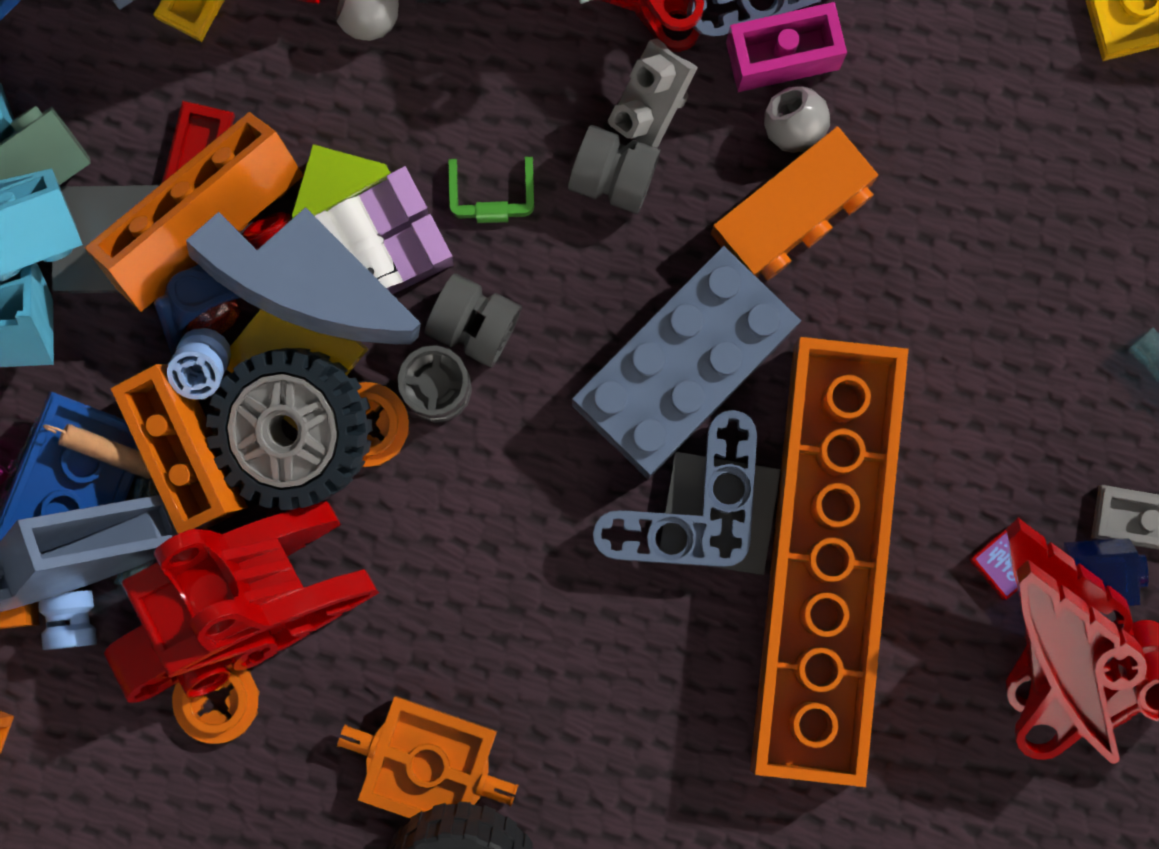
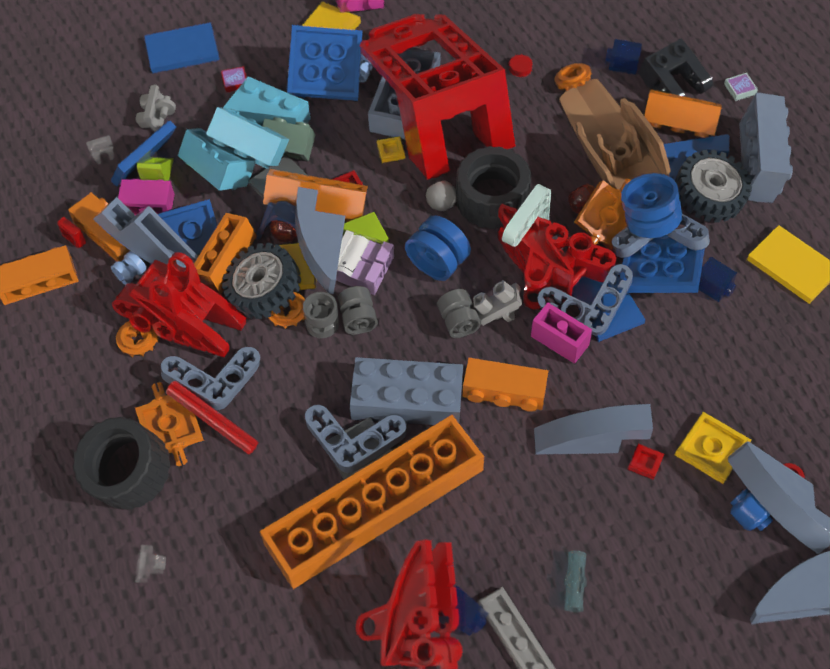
camera: 50 degrees right, 25 degrees down
(102, 449) = (201, 226): light nougat piece -> none
(199, 363) = (259, 232): light blue wheel -> none
(415, 654) = (213, 386): none -> sand blue beam
(475, 102) = (437, 248): none -> blue wheel
(477, 694) = (212, 417): none -> red axle
(491, 211) = (407, 292): bright green piece -> none
(796, 119) = (539, 357): light grey piece -> none
(990, 148) = (594, 430): none -> sand blue slope
(1082, 112) = (645, 461): none -> red tile

